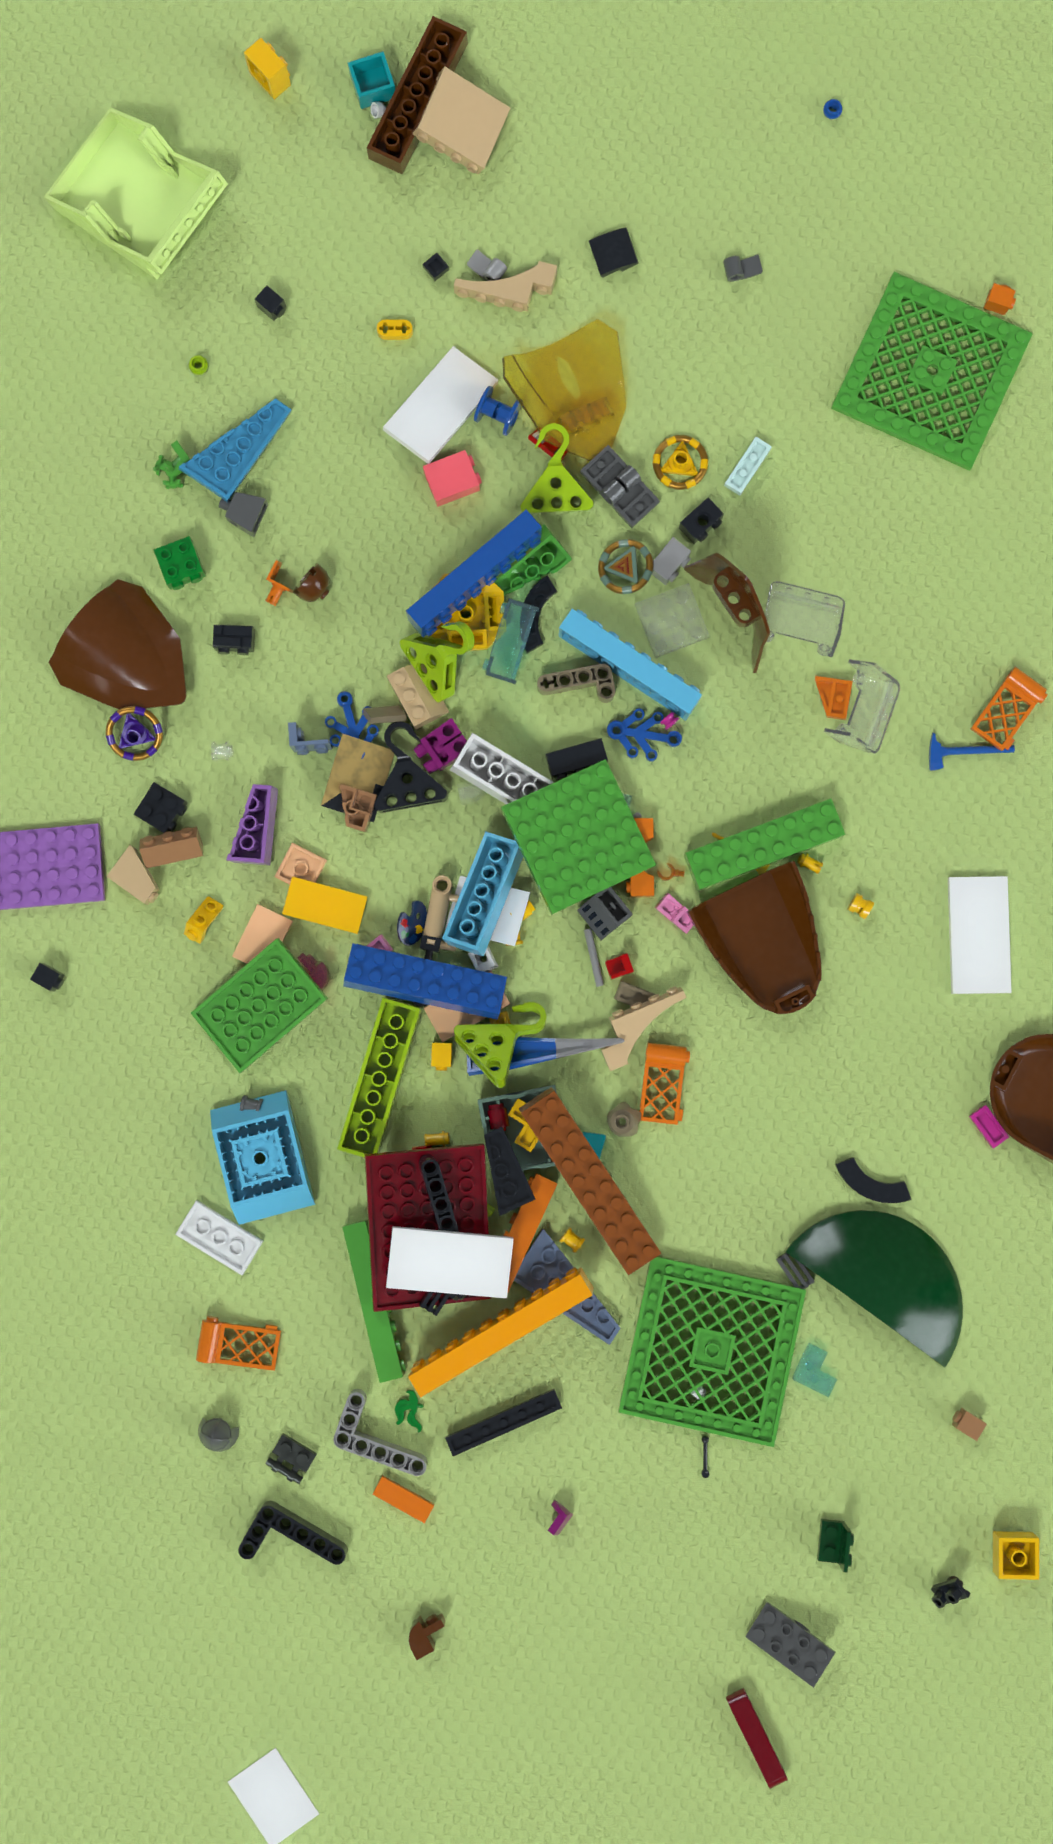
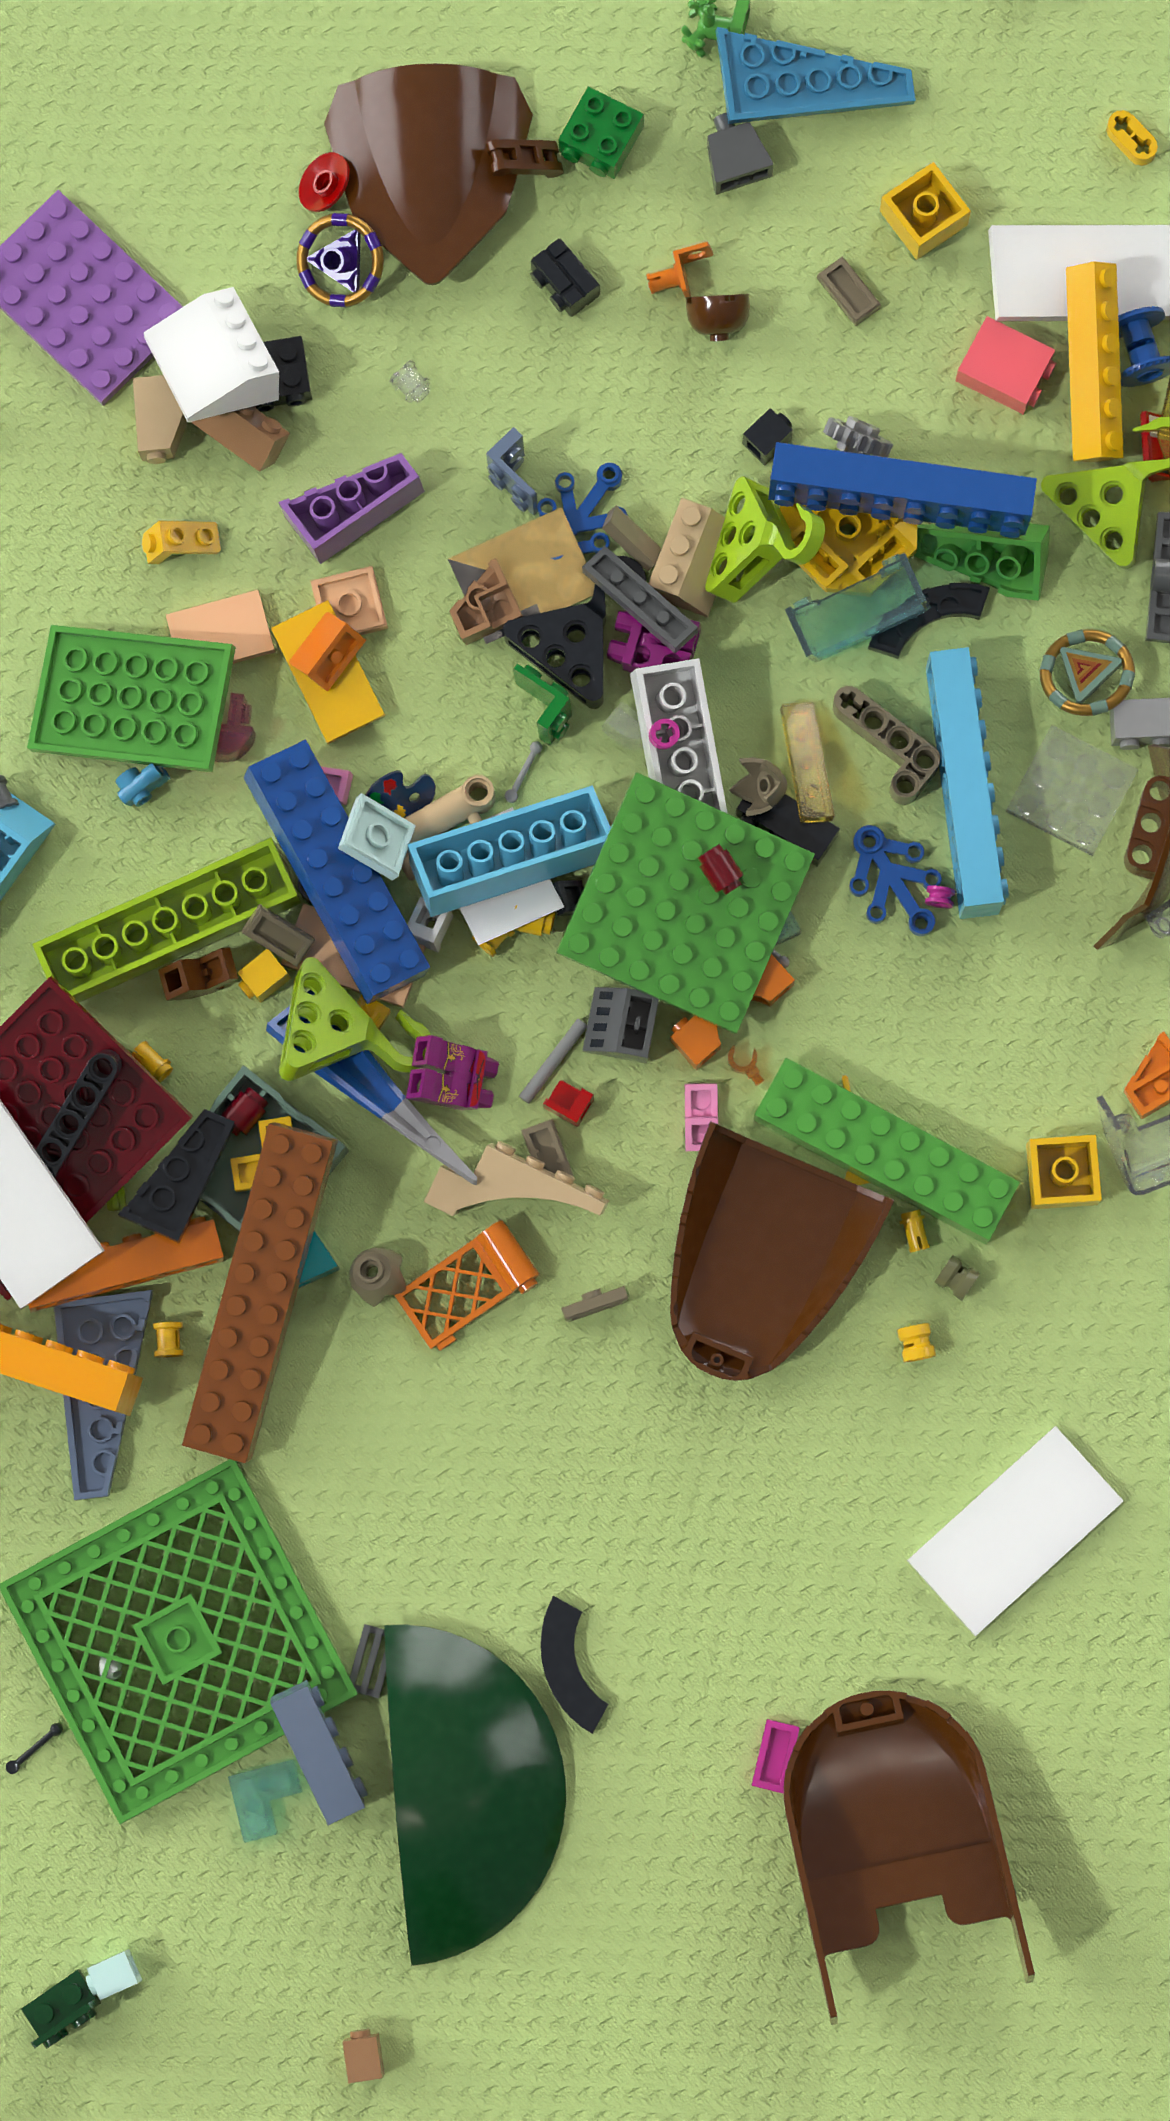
camera: 55 degrees right, 5 degrees down
(89, 708) = (324, 182): none -> red dish
(131, 830) = (213, 357): none -> white slope
(160, 606) = (525, 157): none -> reddish brown plate
(302, 1037) = (136, 786): none -> dark azure plate
(316, 897) = (327, 651): none -> orange panel
(348, 450) = (925, 210): none -> yellow brick
(353, 517) = (848, 291): none -> dark tan tile
(390, 612) = (765, 432): none -> black brick
(416, 1084) = (198, 976): none -> reddish brown brick
(418, 735) = (640, 599): none -> dark grey plate
(426, 949) = (376, 836): none -> light aqua plate
(428, 572) = (857, 437): none -> light grey gear
(428, 812) = (554, 719): none -> green bracket
(430, 1033) = (278, 935): none -> dark tan tile
(442, 841) = (511, 795): none -> light grey hinge
(487, 437) = (1094, 362): none -> yellow brick
(488, 779) = (671, 740): none -> dark pink bush
(526, 884) = (569, 893): none -> black plate
(553, 755) = (762, 786): none -> dark tan piece
(557, 726) = (807, 762): none -> clear yellow tile
(568, 1005) = (461, 1078): none -> magenta hips
(579, 807) = (720, 869): none -> dark red brick
(720, 1033) = (594, 1302): none -> dark tan plate
(818, 1330) = (318, 1751): none -> sand blue brick
(838, 1506) = (113, 1975): none -> light aqua brick
(841, 775) = (1063, 1172): none -> yellow brick
(847, 862) = (957, 1277): none -> olive wheel

